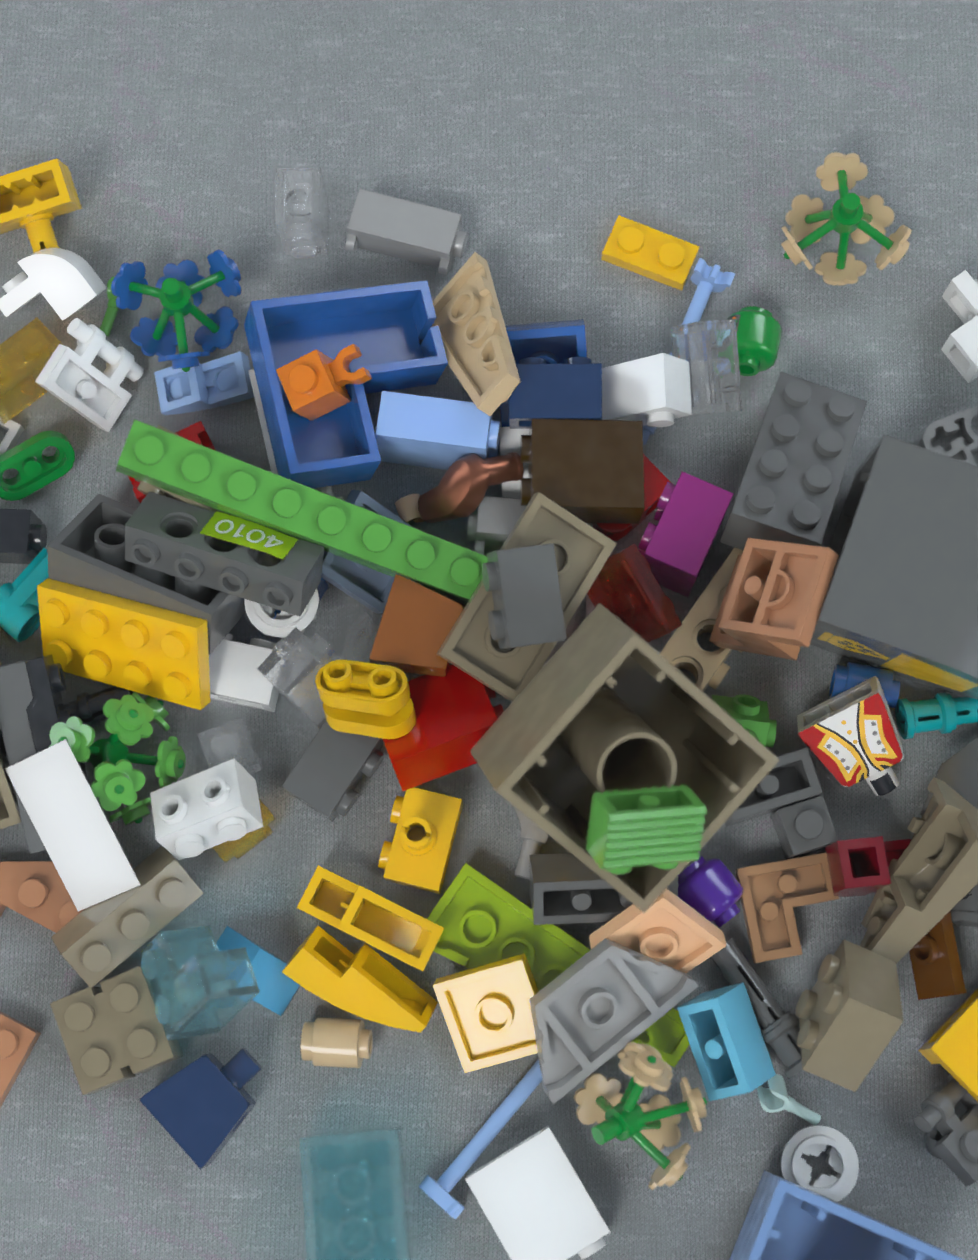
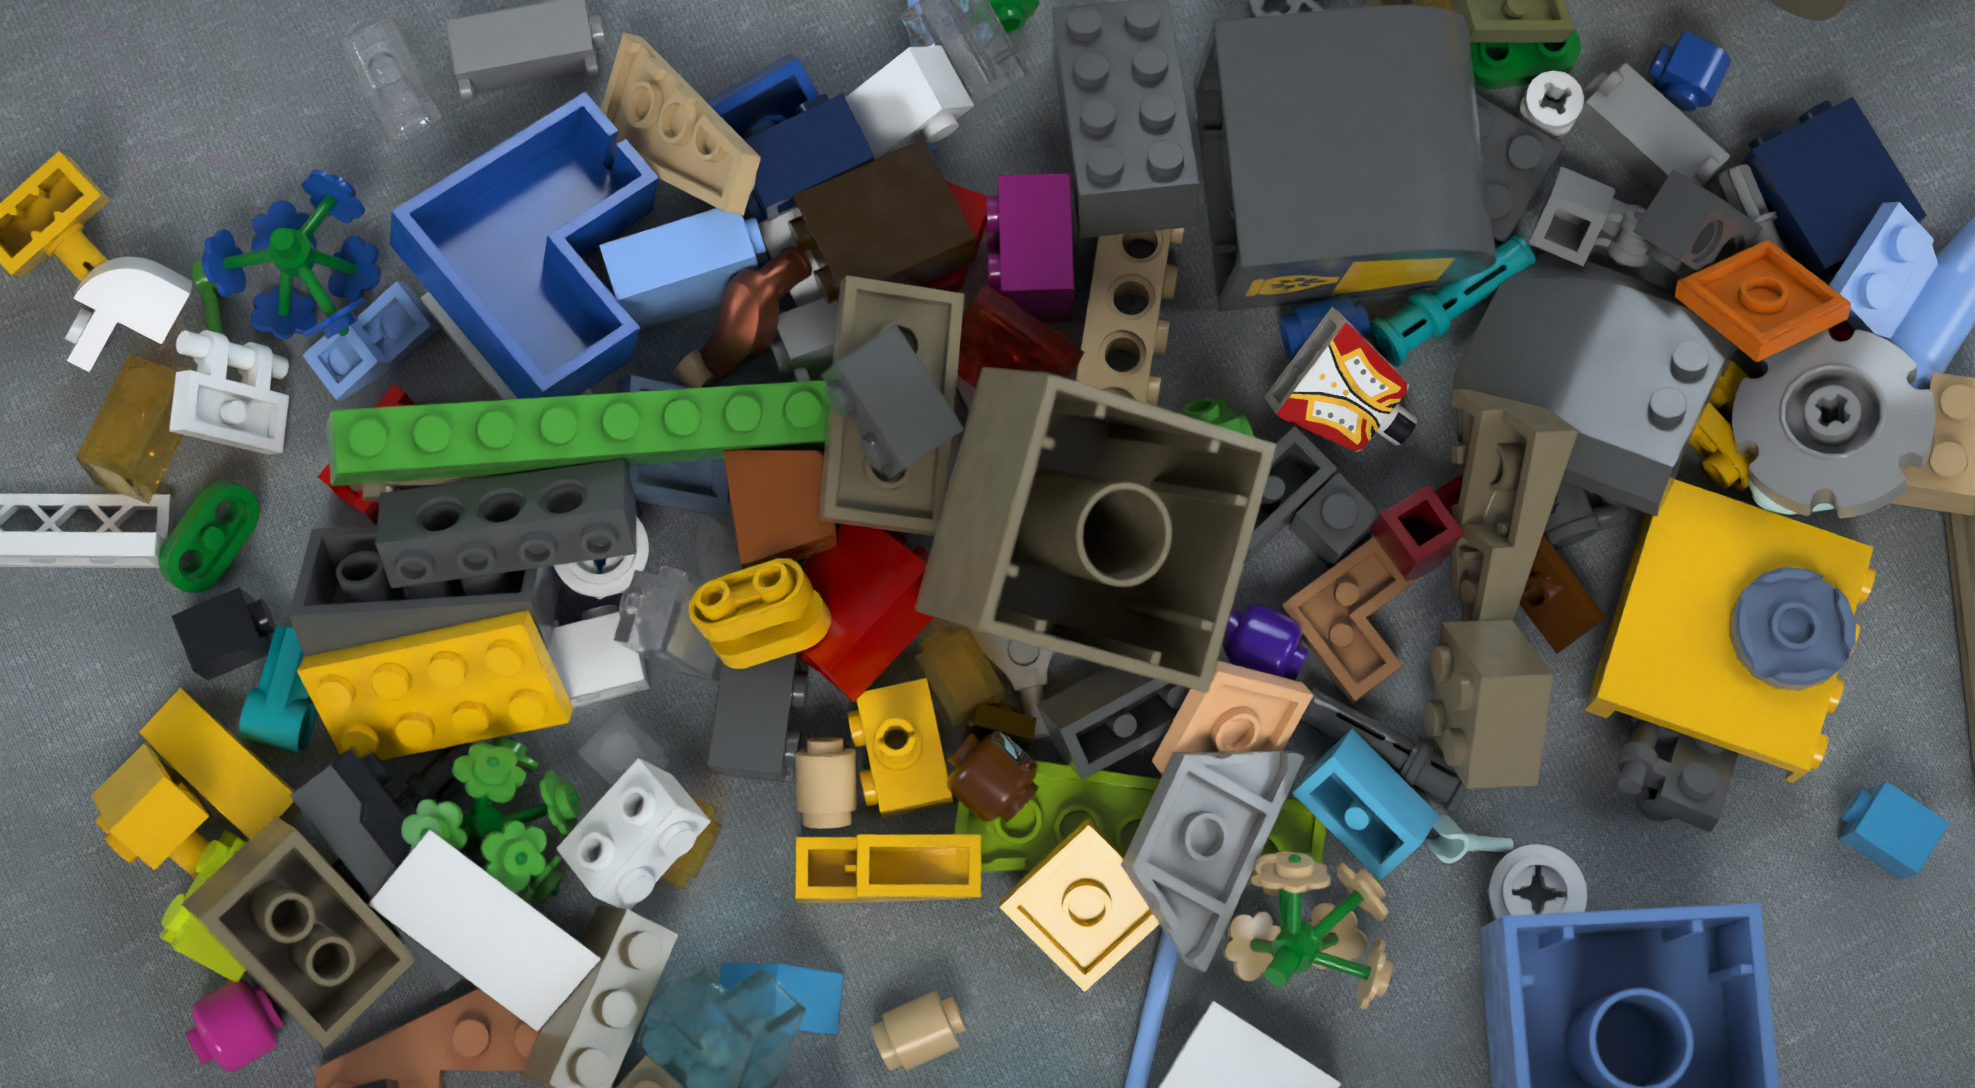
camera: 30 degrees left, 0 degrees up
(248, 534) = (528, 486): lime sticker -> none
(318, 383) = (518, 270): orange brick -> none
(358, 837) = (826, 782): none -> tan brick
(359, 982) = (911, 949): yellow slope -> none
(472, 891) = (992, 776): none -> reddish brown head
(484, 810) = (958, 673): none -> clear yellow brick
(494, 860) = (1001, 718): none -> dark brown plate
(645, 828) = (1165, 592): bright green brick -> none
(774, 598) = (1176, 270): nougat bracket -> none

